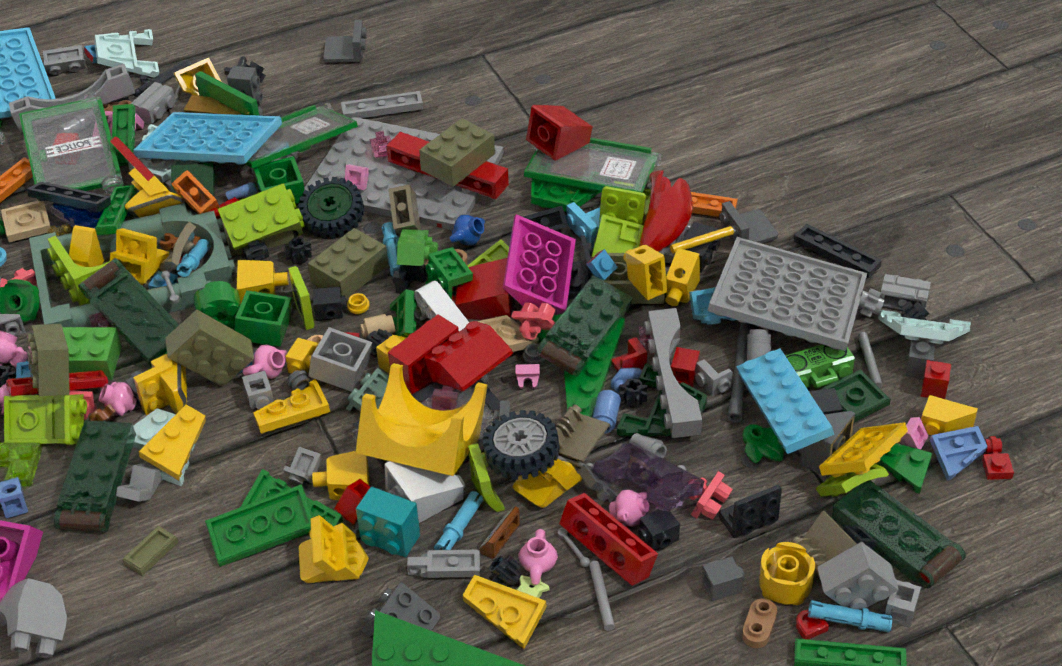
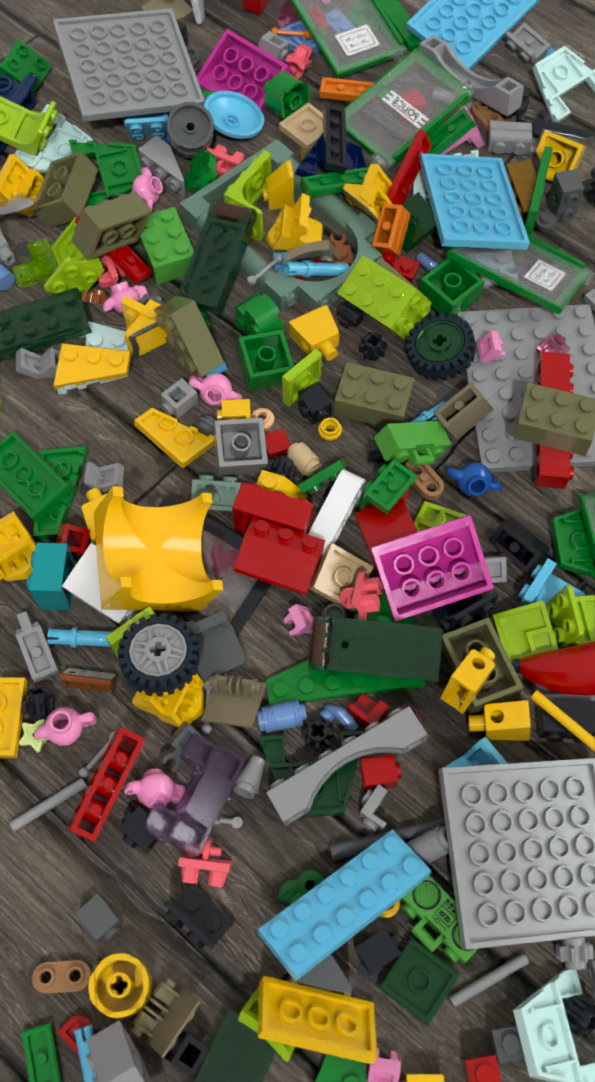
camera: 65 degrees right, 20 degrees up
(602, 265) = (460, 631): dark azure plate -> none

